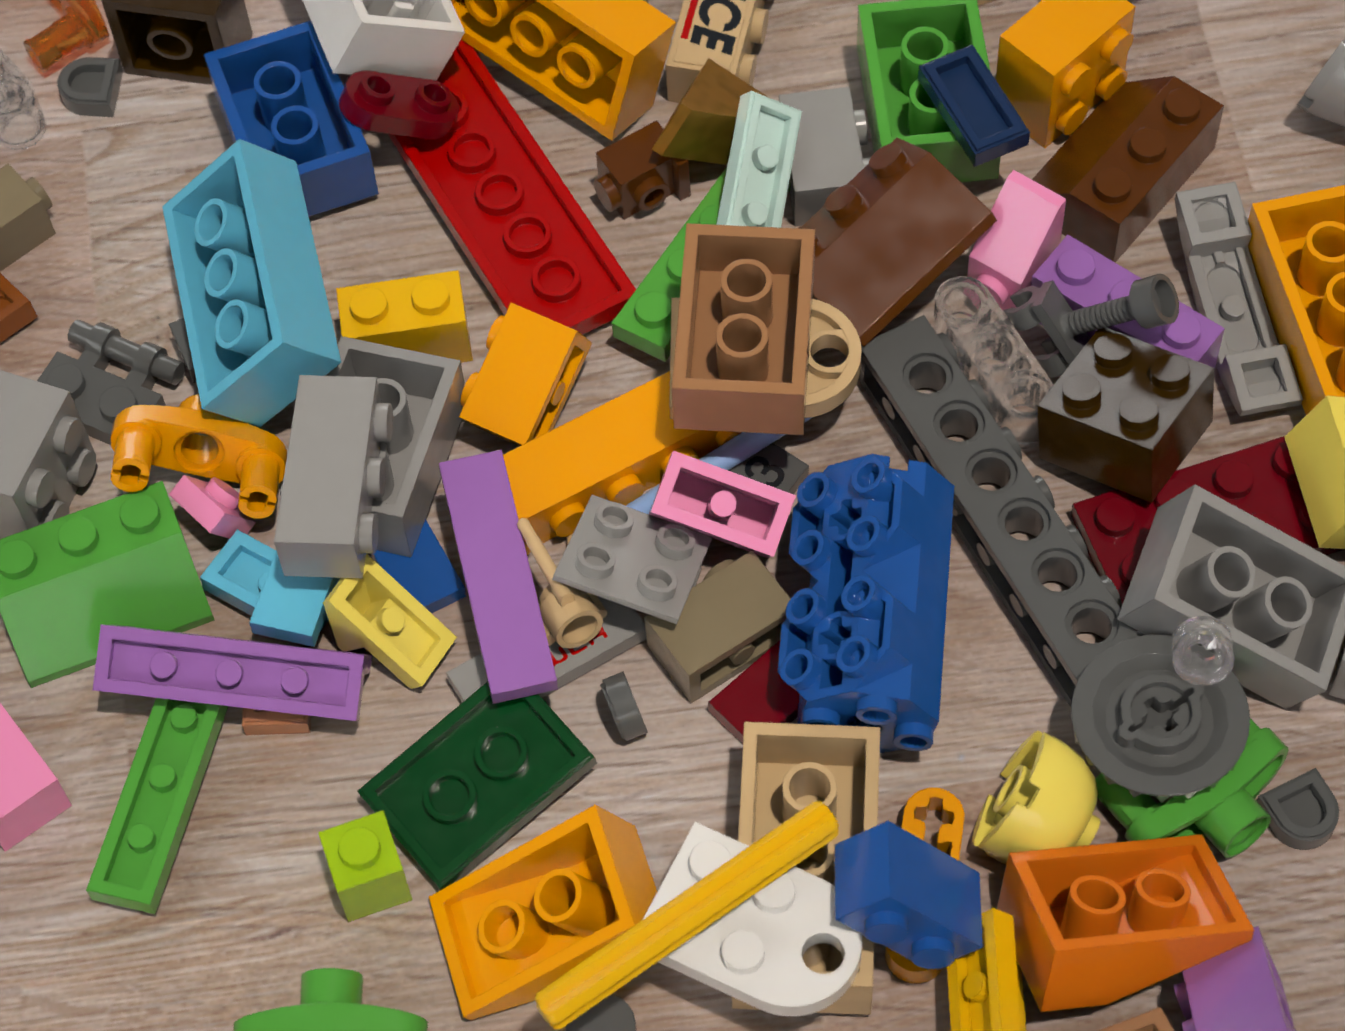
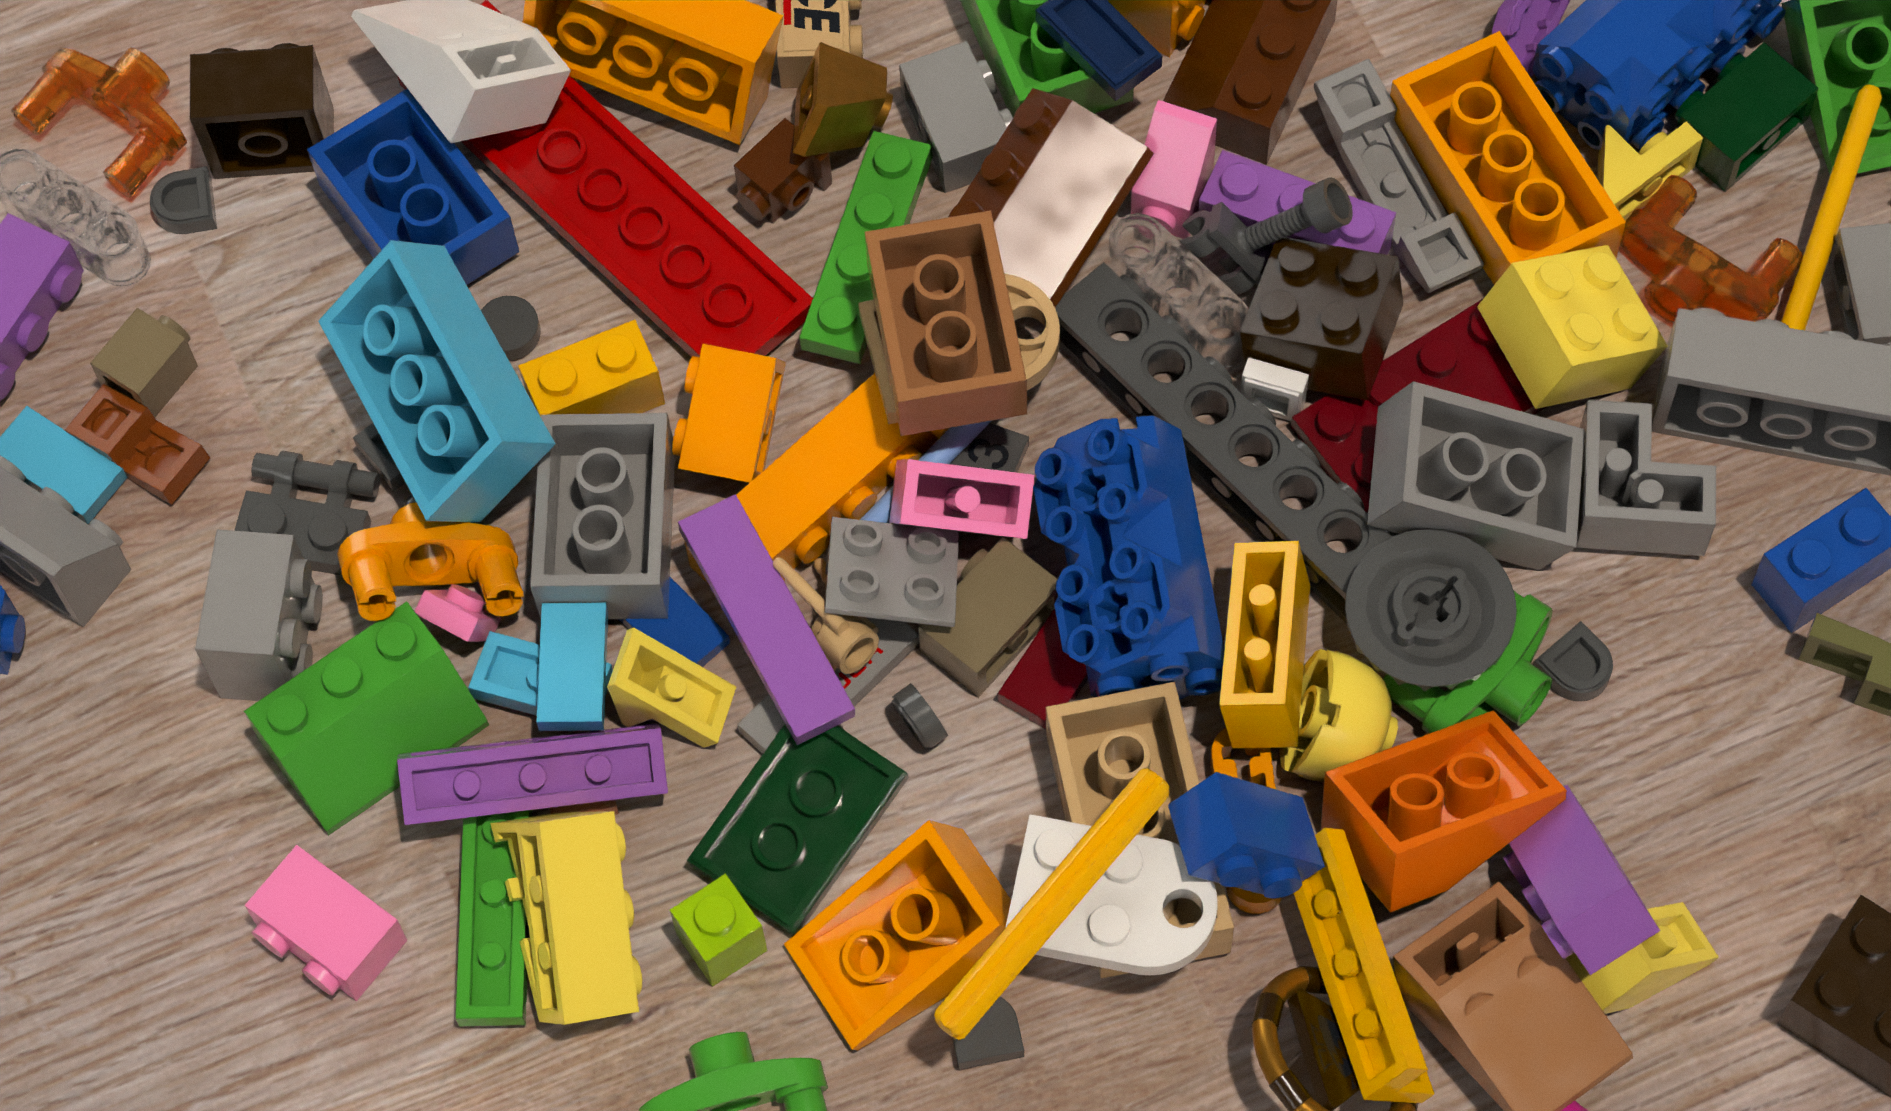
camera: 15 degrees left, 5 degrees up
(226, 817) = (575, 914): none -> light yellow wedge
(332, 477) = (585, 561): light grey brick -> none
(347, 258) = (513, 325): none -> dark grey tile
(398, 105) = (522, 159): dark red plate -> none
(759, 162) = (903, 150): light aqua tile -> none
(983, 714) = (1265, 645): none -> yellow brick
(1064, 470) = (1276, 387): none -> white tile
(1192, 665) = (1450, 554): clear bush -> none

